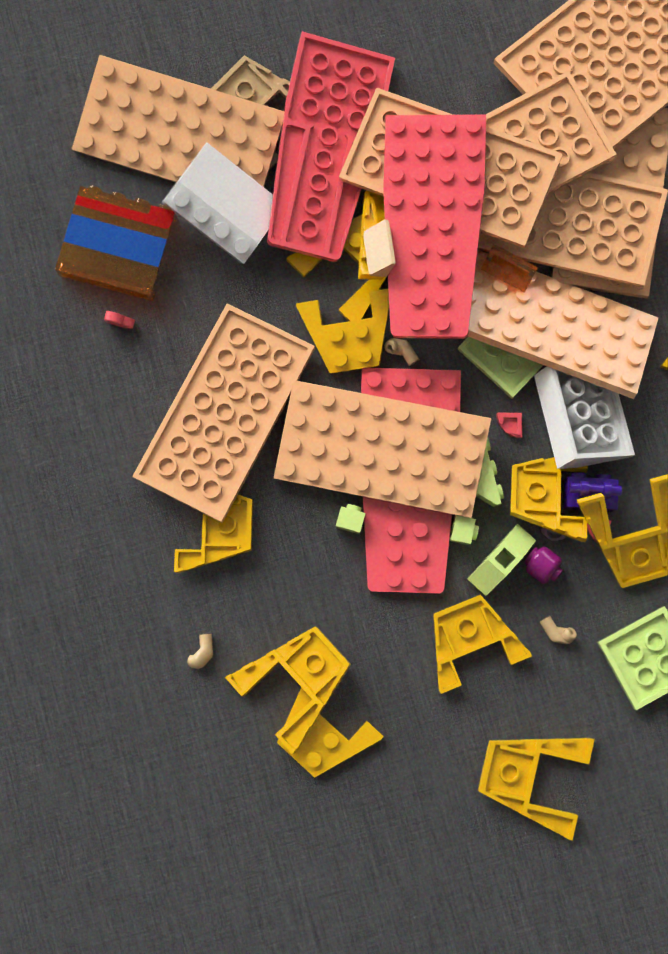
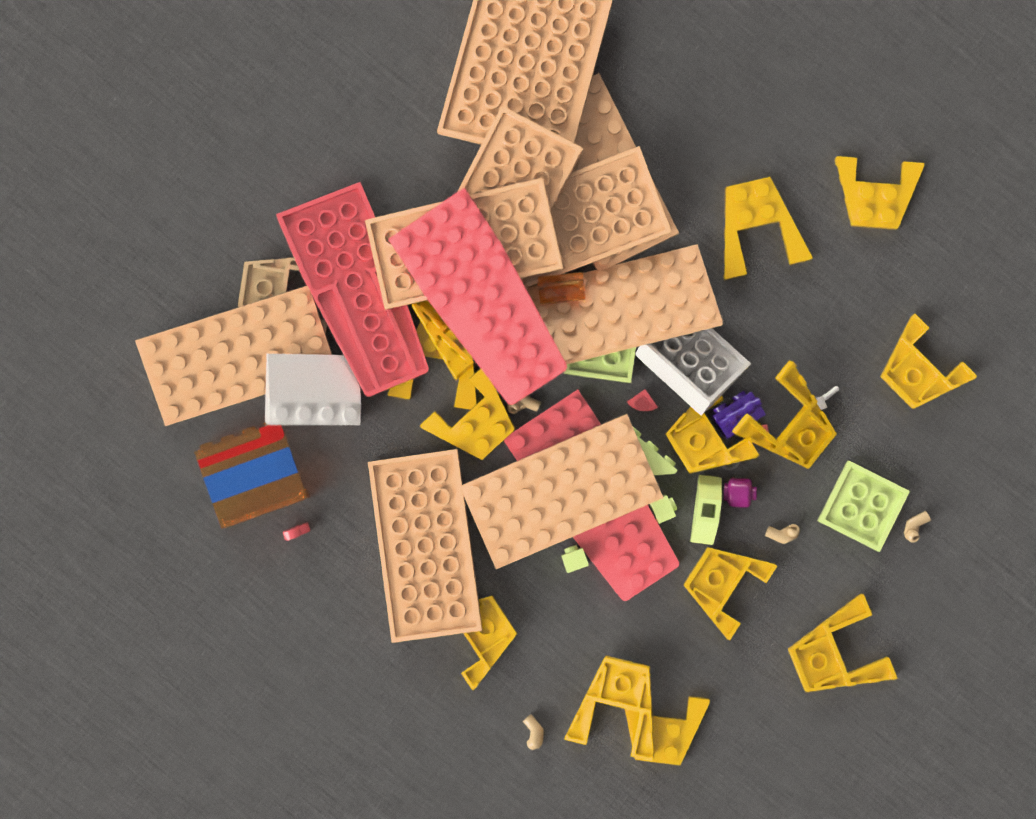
camera: 30 degrees left, 5 degrees up
(379, 249) = (456, 347): slope -> none

